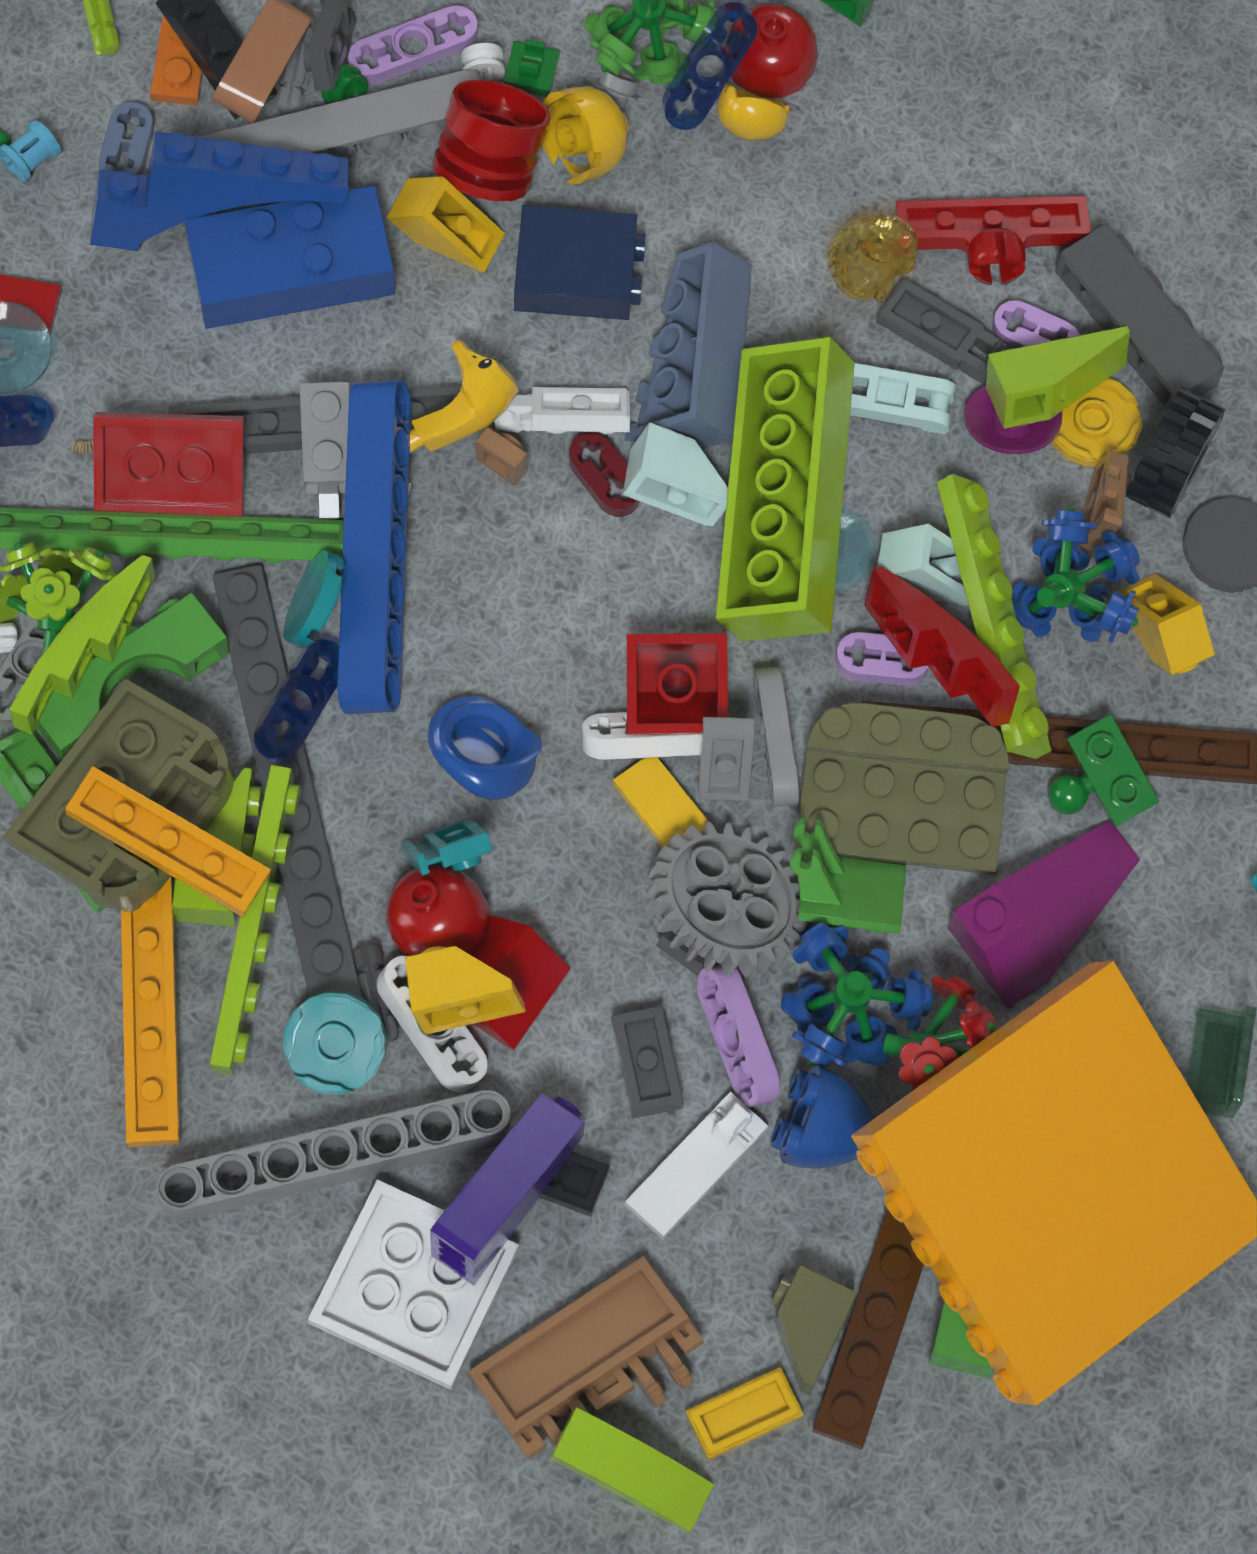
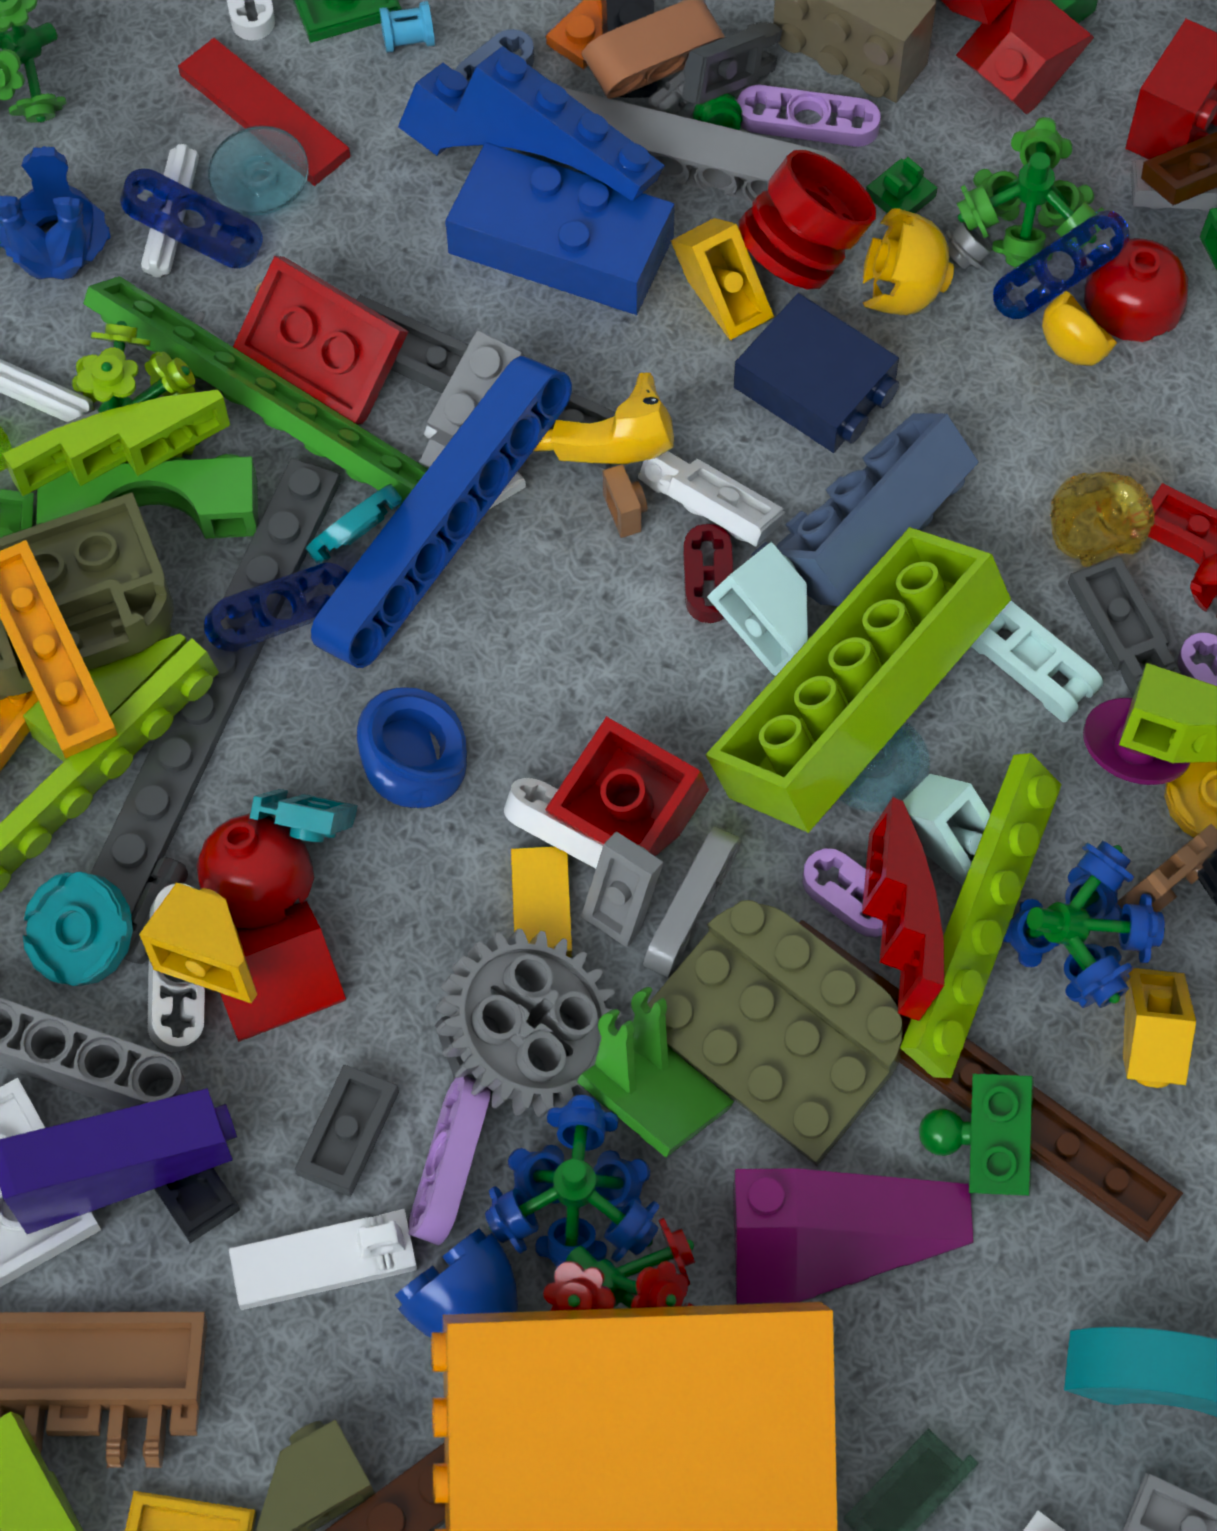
camera: 40 degrees right, 5 degrees down
(485, 59) = (862, 159): white bush -> none

